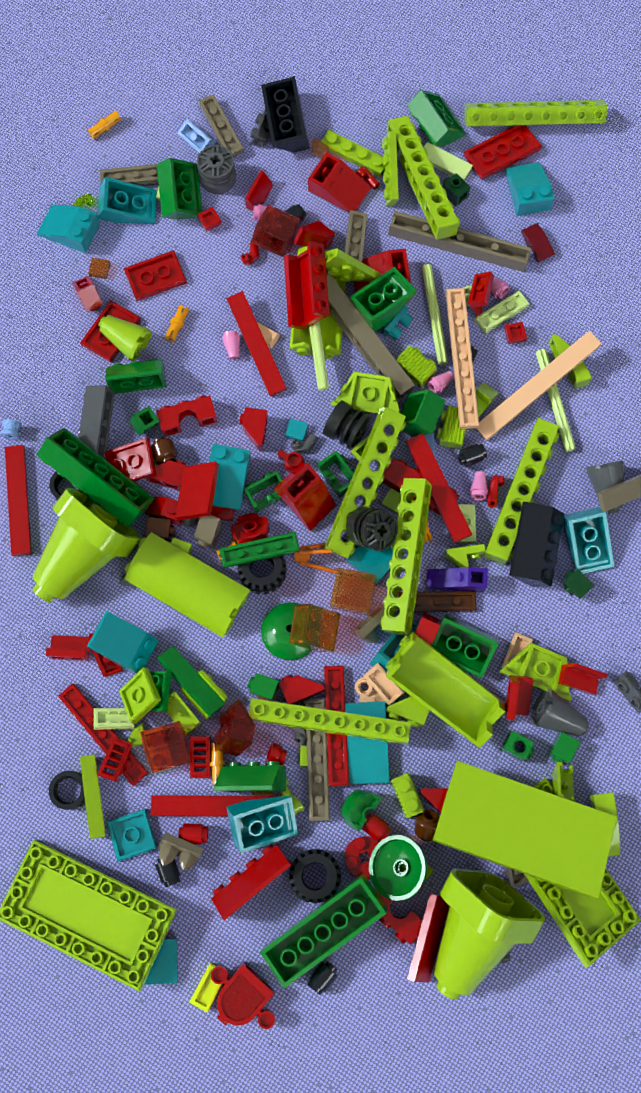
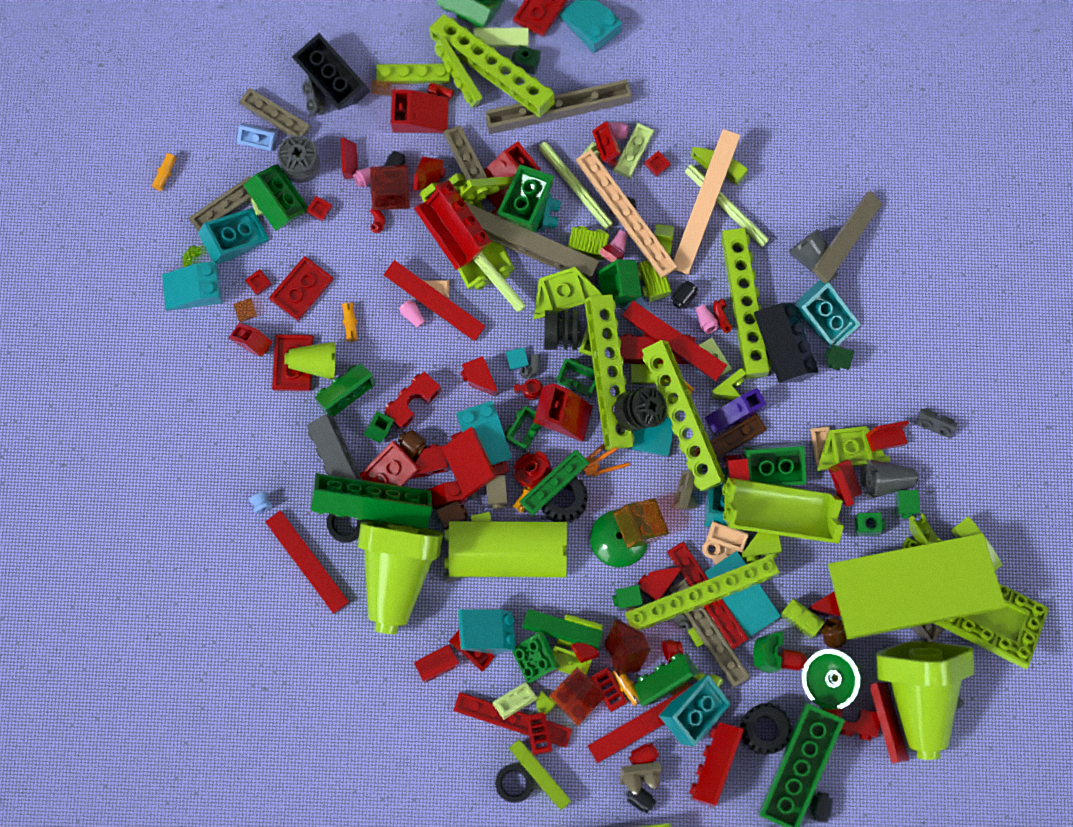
camera: 30 degrees left, 0 degrees up
(124, 251) = (258, 282): none -> red tile
(131, 835) = (590, 788): teal tile -> none
(139, 695) = (526, 667): lime tile -> none
(196, 712) = (584, 652): none -> red tile
(352, 853) = (785, 695): red plate -> none
(353, 591) = (654, 472): clear orange piece -> none
(428, 382) = (611, 253): none -> red tile
(538, 241) = (627, 67): dark red slope -> none

